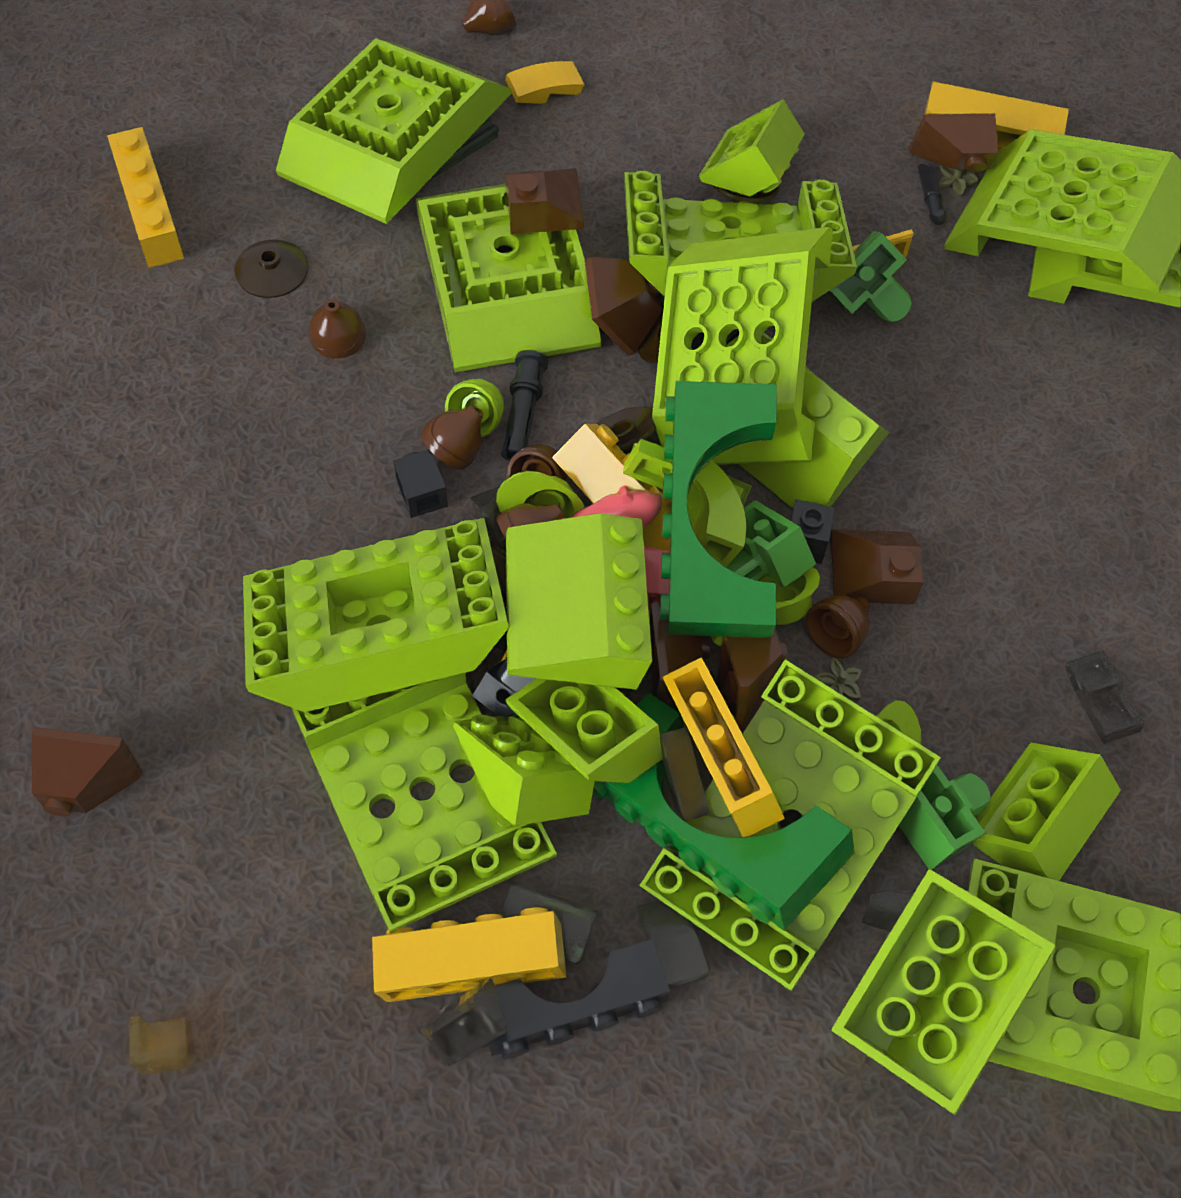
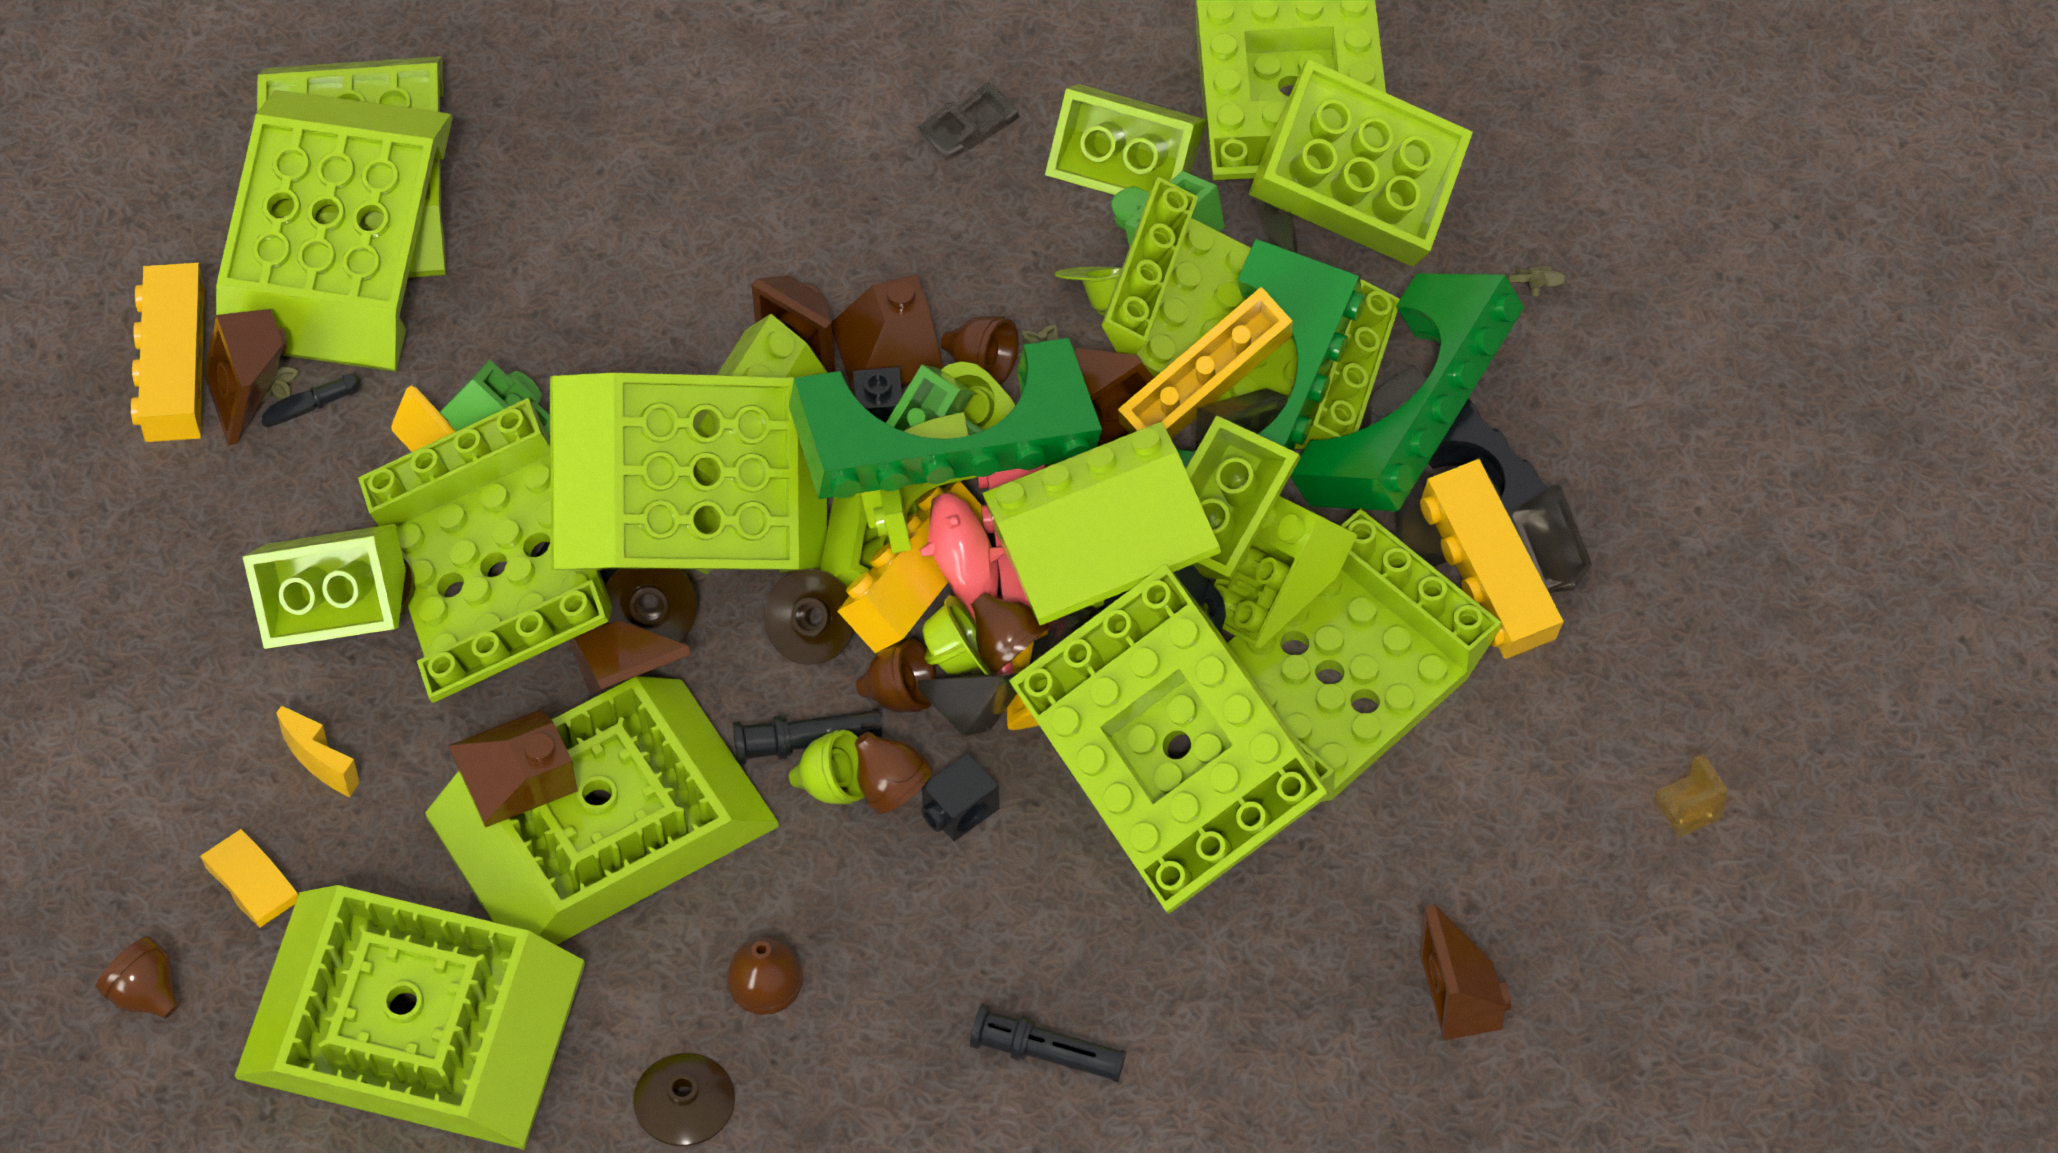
camera: 105 degrees left, 5 degrees down
(202, 466) = (1024, 1039): none -> black pin
(629, 125) = (309, 745): none -> yellow slope
(723, 1026) = (1385, 460): none -> green arch
(789, 1143) = (1537, 277): none -> olive plant
(906, 493) = (798, 308): none -> reddish brown slope

